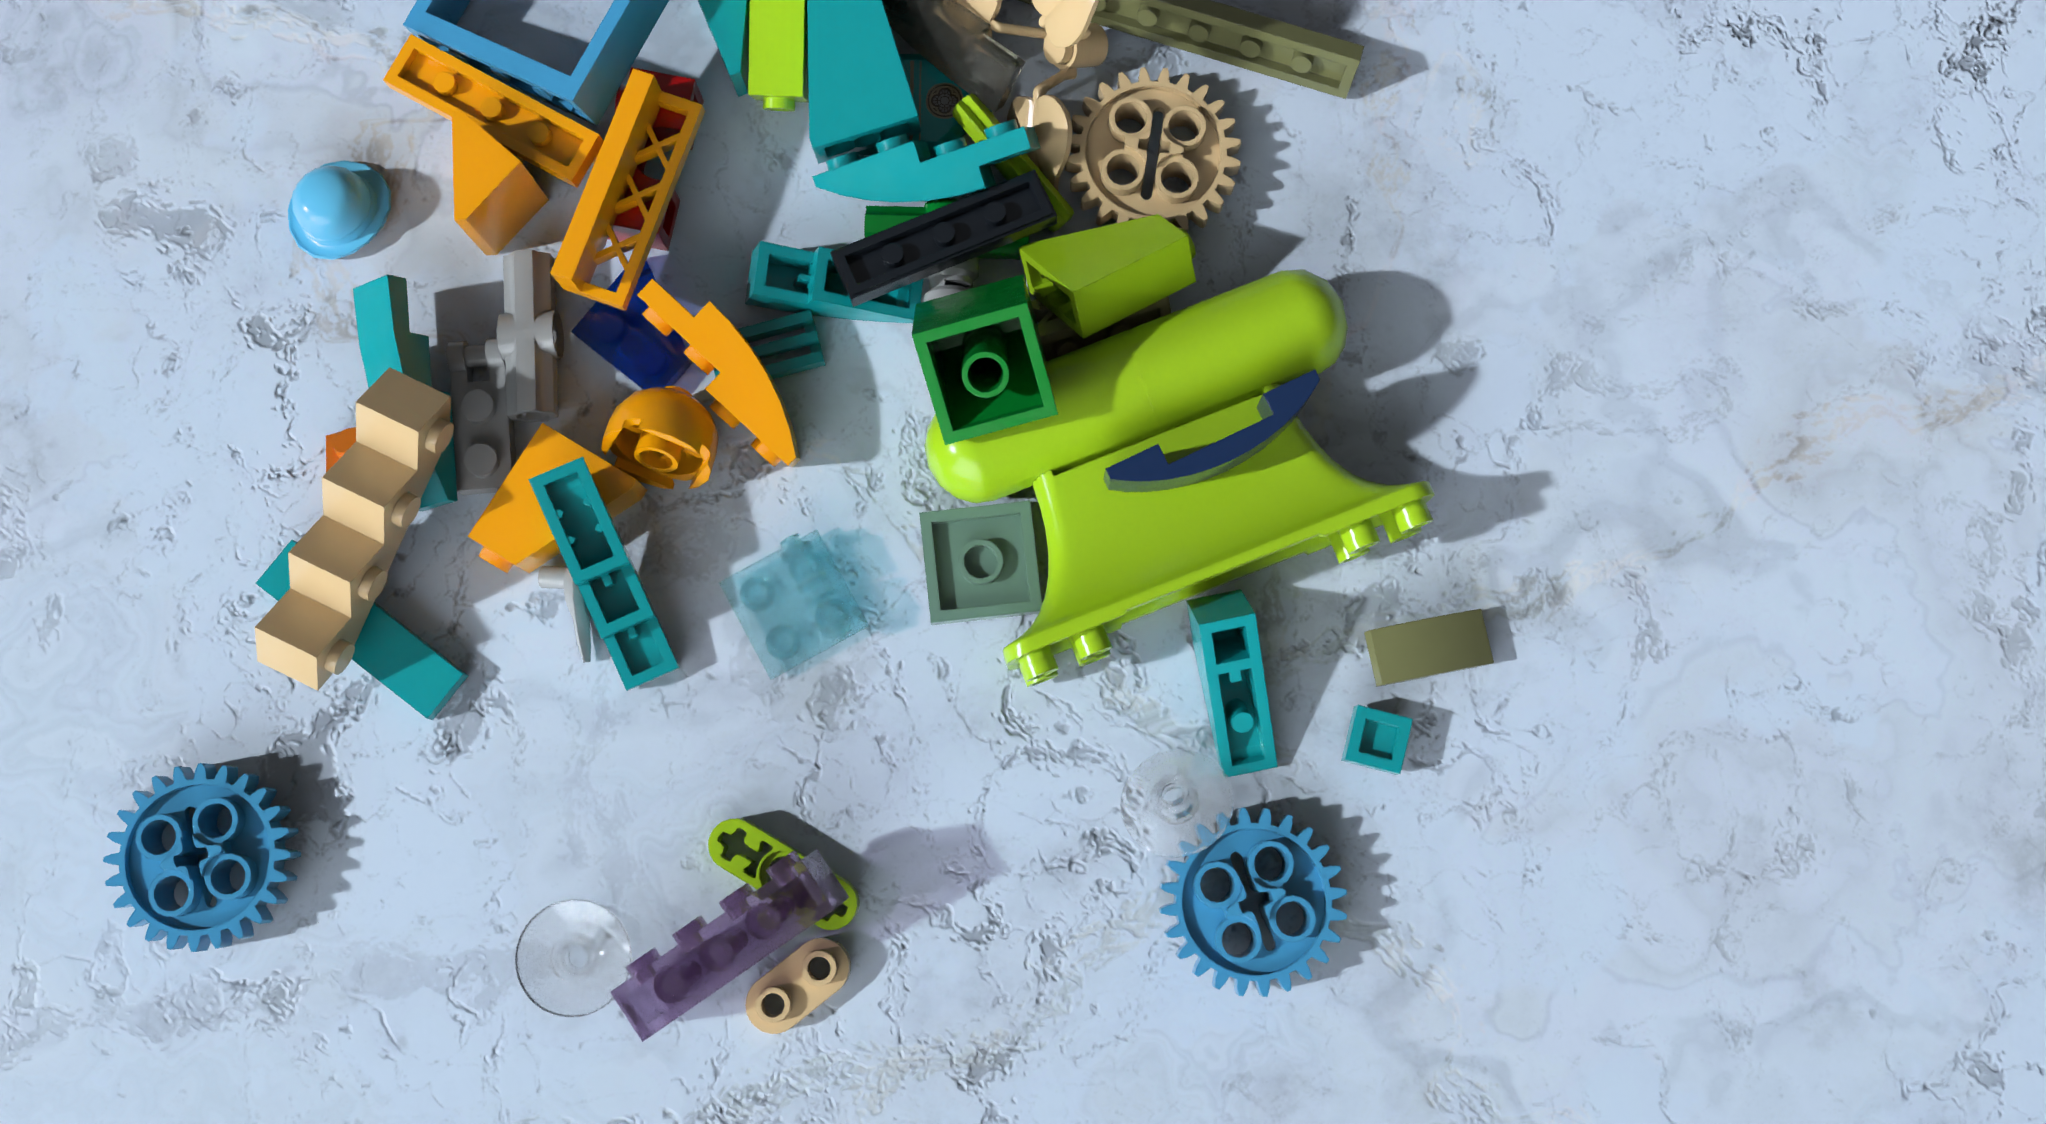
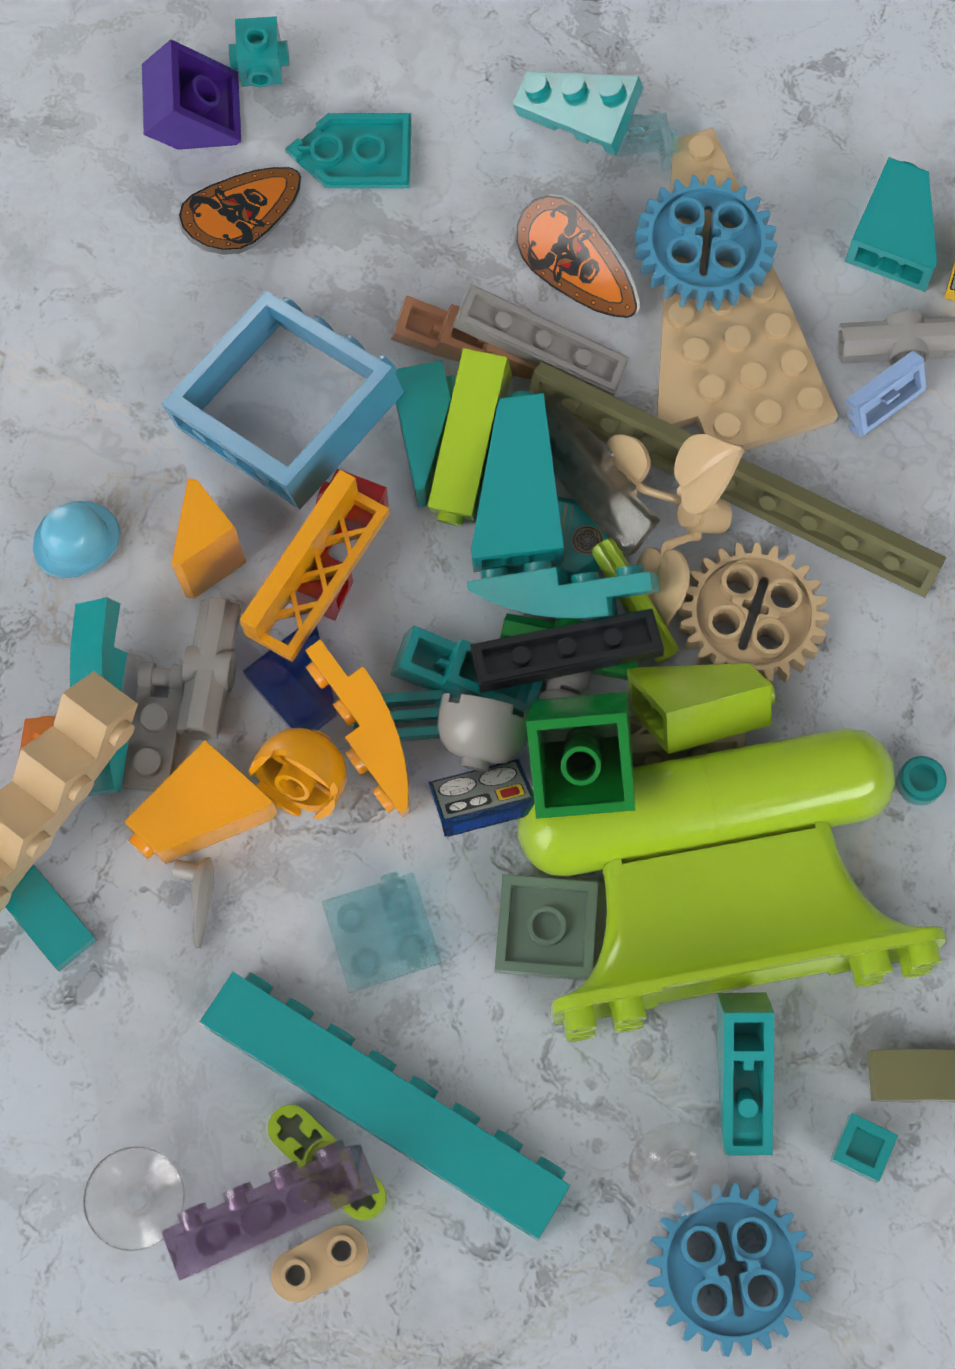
camera: 15 degrees right, 10 degrees down
(506, 114) = (236, 494): light orange fence -> none
(604, 573) = (230, 875): teal slope -> none
(833, 797) = (386, 1105): none -> teal brick
(862, 351) = (481, 730): none -> light grey cylinder
(879, 429) = (482, 798): none -> tile
(1151, 472) = (705, 875): dark blue slope -> none
(1375, 313) = (921, 780): none -> teal tile

